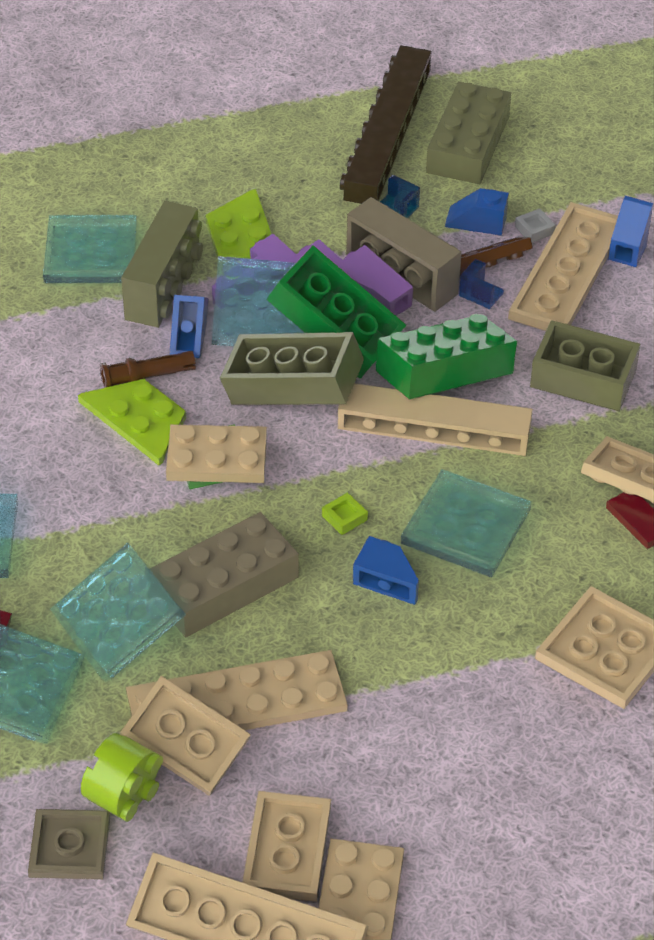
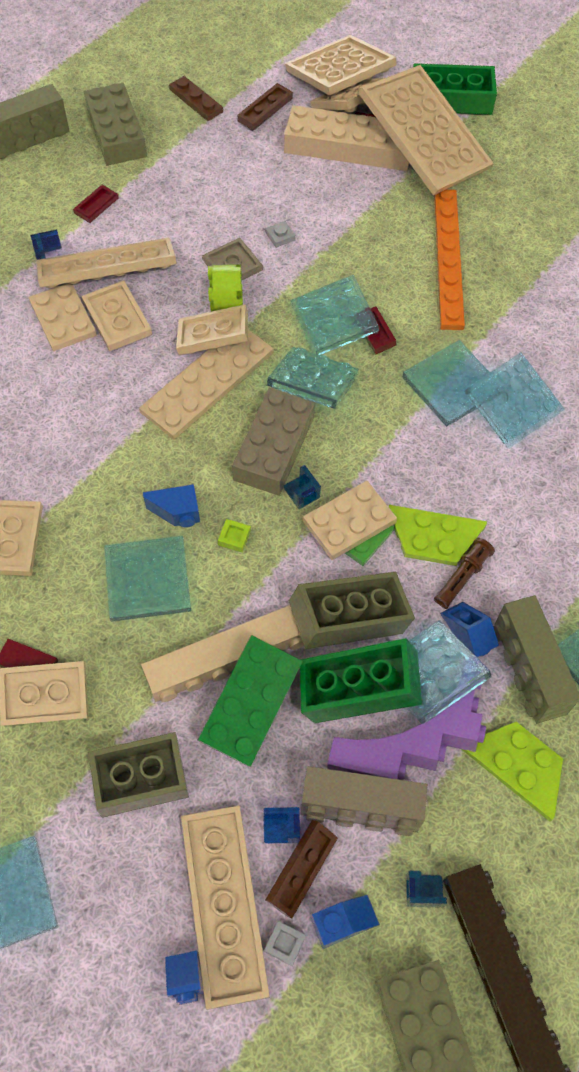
camera: 145 degrees right, 15 degrees up
(232, 509) = (303, 489): none -> panel

